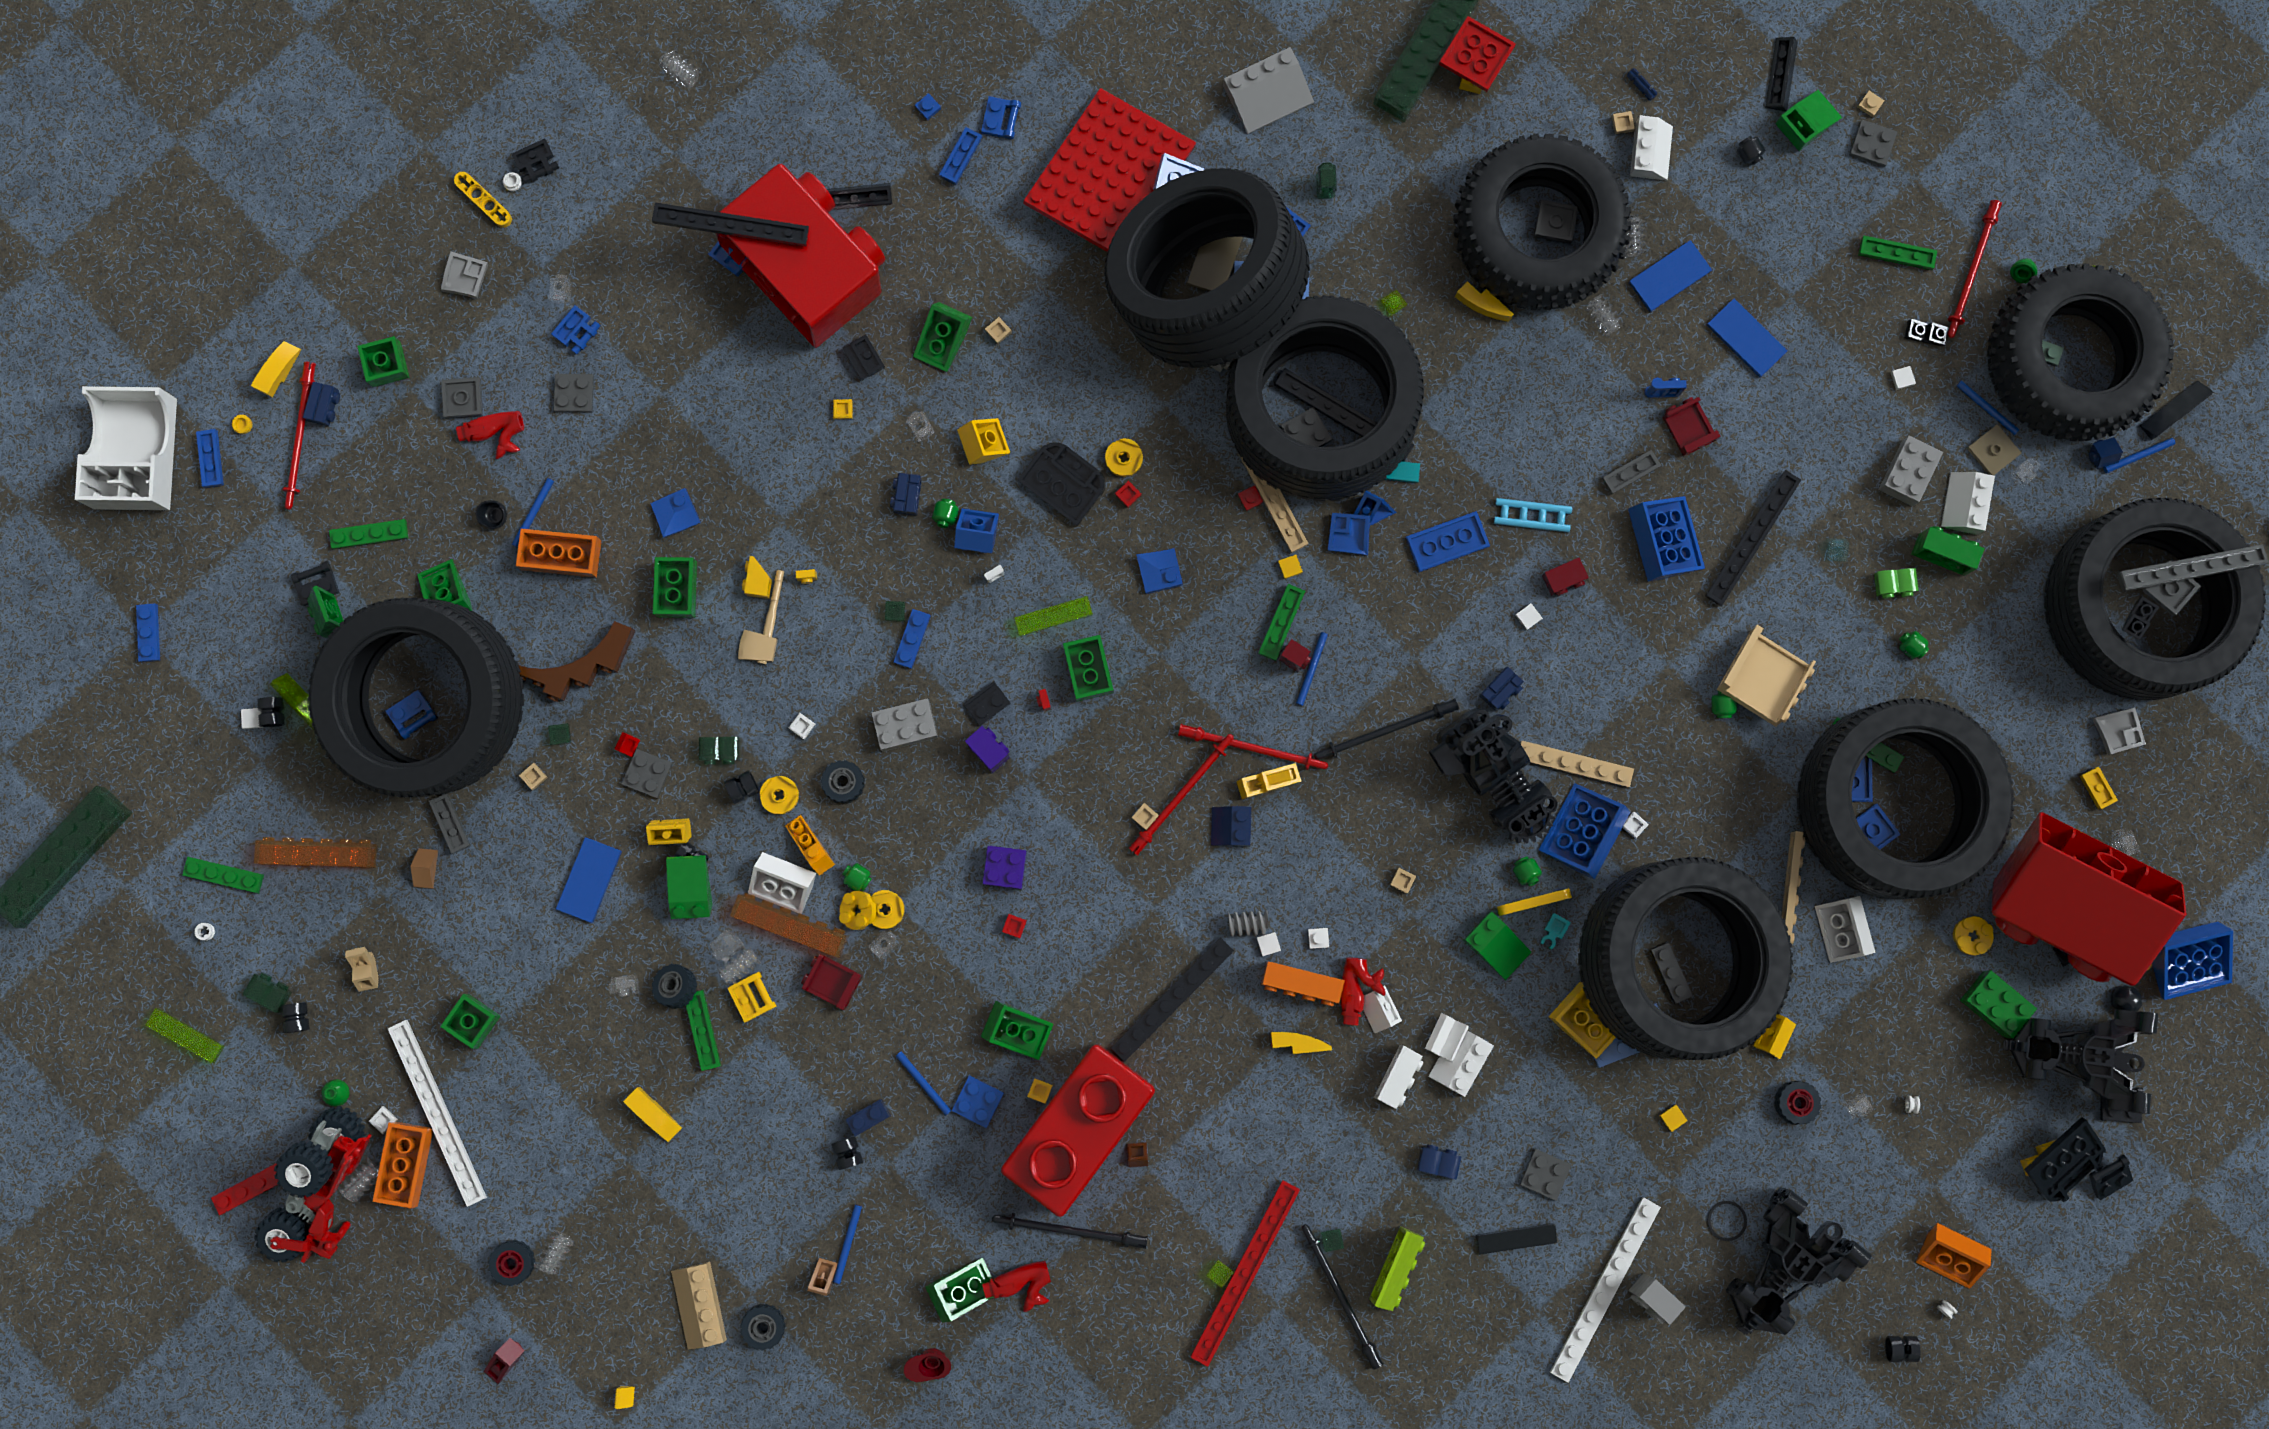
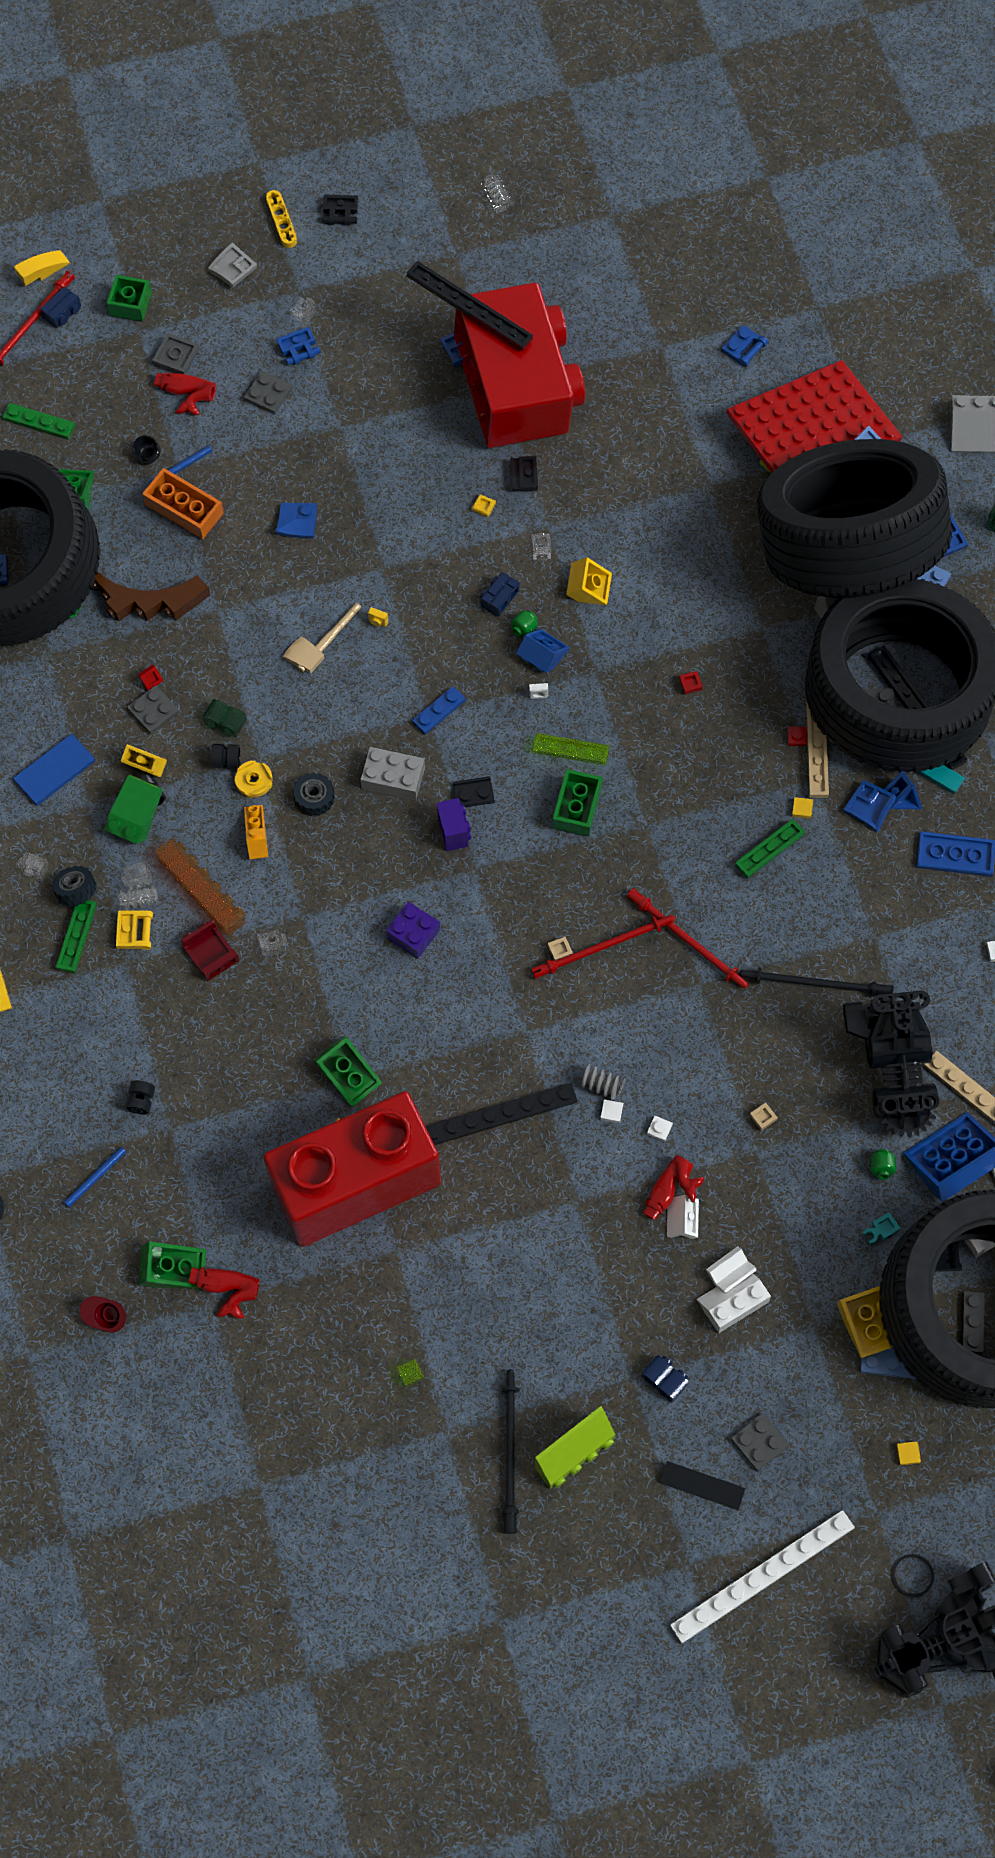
camera: 30 degrees right, 15 degrees down
(512, 181) = (312, 216): white plate -> none
(533, 776) = (58, 665): tan plate -> none
(559, 734) = (99, 643): clear green plate -> none
(674, 587) = (262, 574): green brick -> none
(757, 581) = (333, 604): yellow slope -> none
(781, 882) = (214, 848): white slope -> none
(802, 726) = (305, 734): white tile -> none
(822, 1277) = (56, 1192): medium nougat slope -> none
(848, 906) = (257, 906): yellow plate -> none
(856, 877) = (280, 876): green head -> none
(861, 196) = (592, 353): black slope -> none
(868, 1117) = (175, 1077): dark blue brick -> none
(895, 611) = (437, 681): clear green plate -> none
(896, 911) = (294, 924): yellow plate -> none
(923, 1083) = (239, 1075): blue bar -> none
(927, 106) = (687, 311): blue plate -> none
(942, 336) = (599, 486): green slope -> none
(960, 156) = (694, 358): blue plate -> none
(977, 1101) = (278, 1114): blue plate -> none
(998, 330) = (650, 504): tan plate -> none
(1014, 926) = (394, 983): red plate -> none
(1043, 700) = (524, 811): red plate -> none
(1064, 481) = (641, 645): black plate -> none
(1126, 1239) = (343, 1299): black bar -> none
(1128, 467) = (703, 643): yellow plate -> none
(1137, 1154) = (393, 1233): reddish brown slope -> none
(1159, 570) = (684, 756): blue plate -> none
(1231, 826) = (633, 994): dark blue slope -> none
(1245, 1273) = (433, 1384): red plate -> none
(1268, 781) = (686, 973): yellow slope -> none
(1295, 656) = (766, 878): dark red brick -> none
(1298, 1042) = (592, 1207): yellow slope -> none
(1302, 982) = (623, 1154): orange brick -> none
(1311, 669) = (776, 900): blue bar -> none
(1332, 1240) = (529, 1396): clear green plate -> none
(1399, 1077) = (668, 1281): white slope -> none
(1497, 945) = (821, 1214): green slope -> none
(1501, 689) = (942, 997): dark blue brick -> none
(1534, 902) = (875, 1194): yellow beam -> none
(1656, 1299) = (805, 1601): light grey brick -> none

